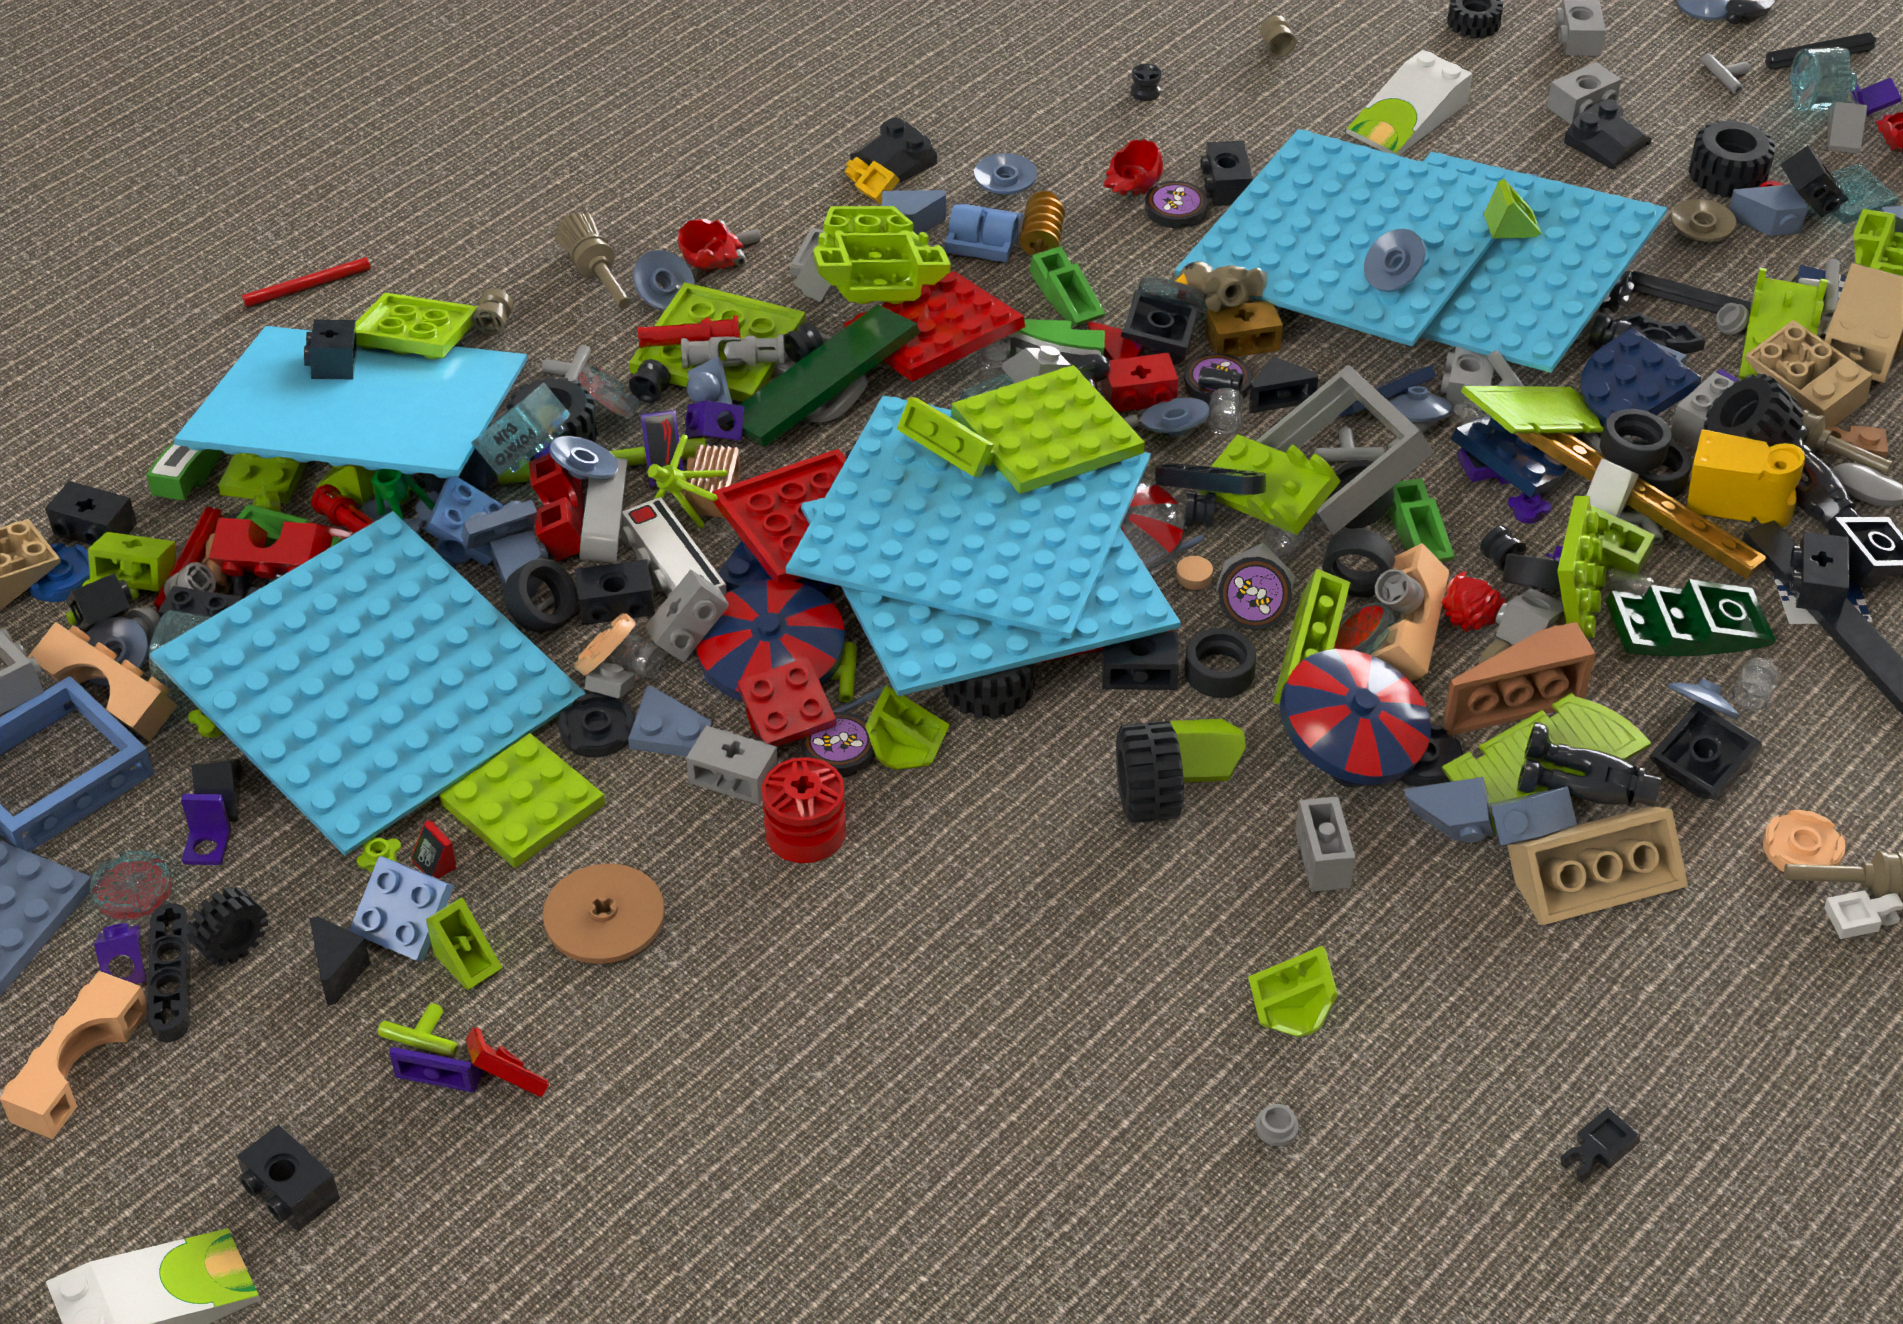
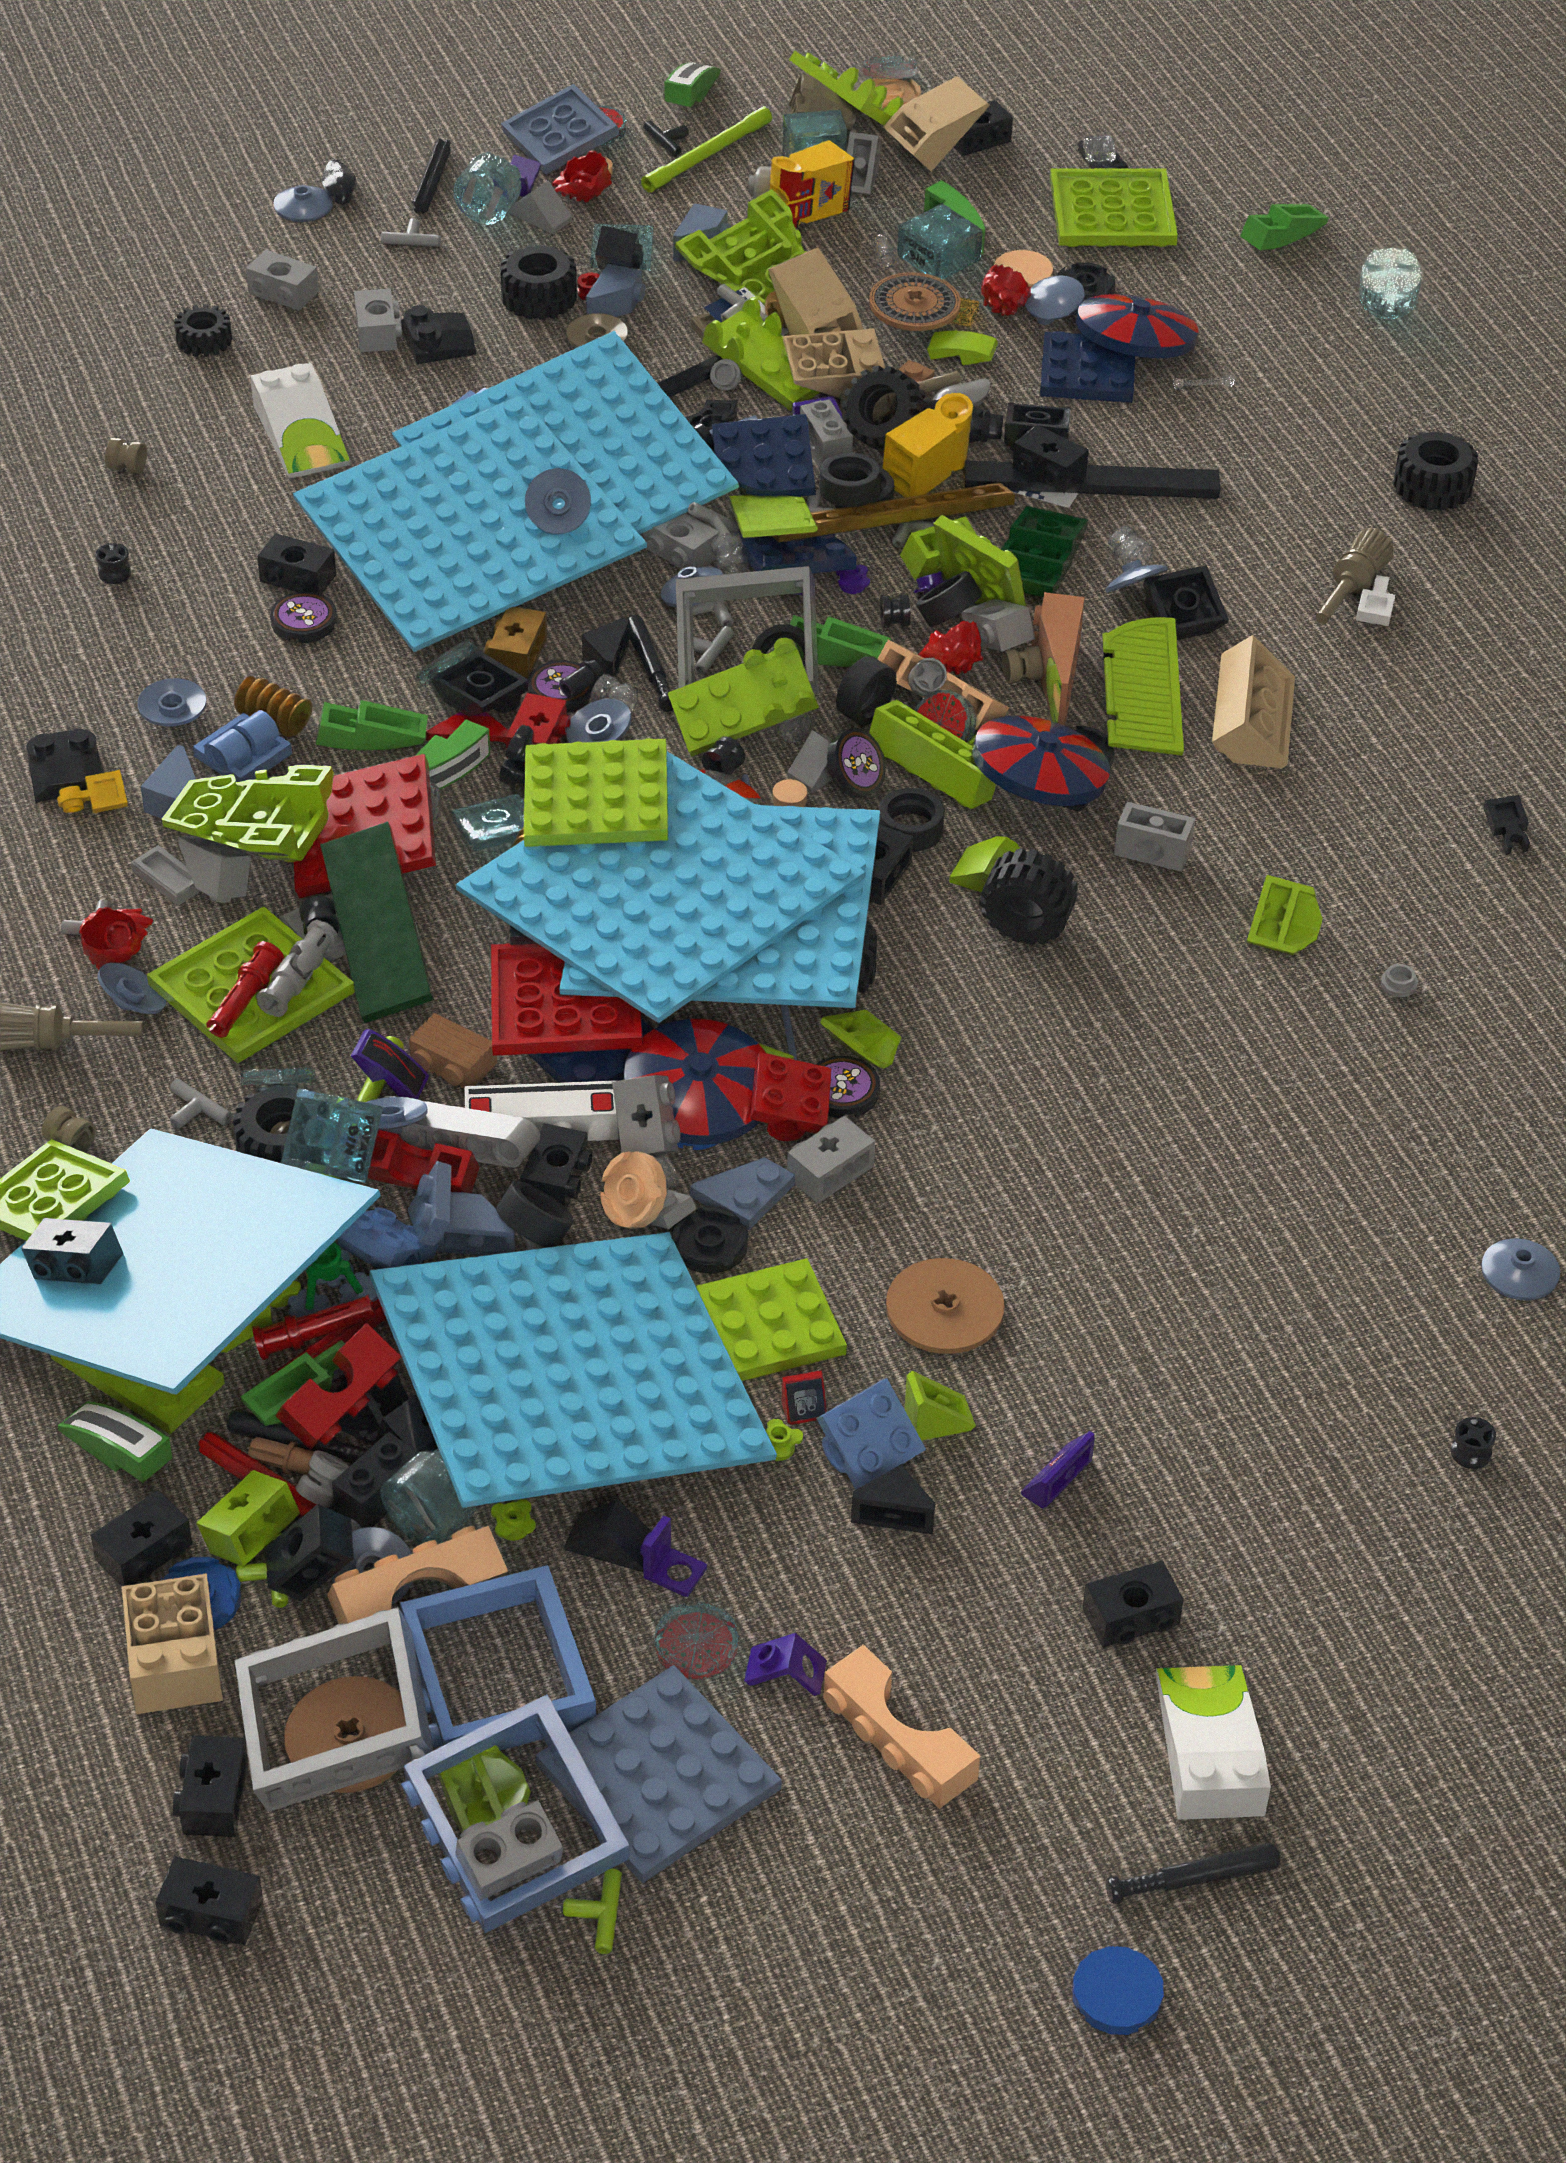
camera: 65 degrees left, 0 degrees up
(169, 971) = (832, 1629): black beam -> none
(227, 926) = (822, 1563): black tyre -> none
(267, 499) = (231, 1383): lime plate -> none
(421, 1035) = (1011, 1474): lime piece -> none
(503, 1064) = (1076, 1423): red tile -> none
(649, 380) = (272, 1048): black wheel -> none
(674, 480) = (460, 1063): lime plant -> none
(702, 420) = (374, 1017): dark purple bracket -> none
(710, 384) = (337, 1007): sand blue tile -> none
(804, 810) = (926, 1125): red wheel -> none
(946, 437) = (574, 852): lime plate -> none
(1033, 363) = (482, 783): light grey slope -> none
(1135, 168) = (249, 613): red hair -> none
(1210, 478) = (723, 723): black beam -> none
(1224, 285) = (480, 620): dark tan animal -> none
(1396, 386) = (660, 595): dark blue tile -> none
(1454, 808) = (1161, 753): sand blue slope -> none
(1509, 214) = (556, 413): lime slope -> none
(1533, 815) = (1197, 719): sand blue slope -> none
(1605, 779) = (1193, 655): black piece -> none
(1611, 487) = (890, 525): white slope -> none
(1803, 839) = (1290, 602): light nougat tile -> none

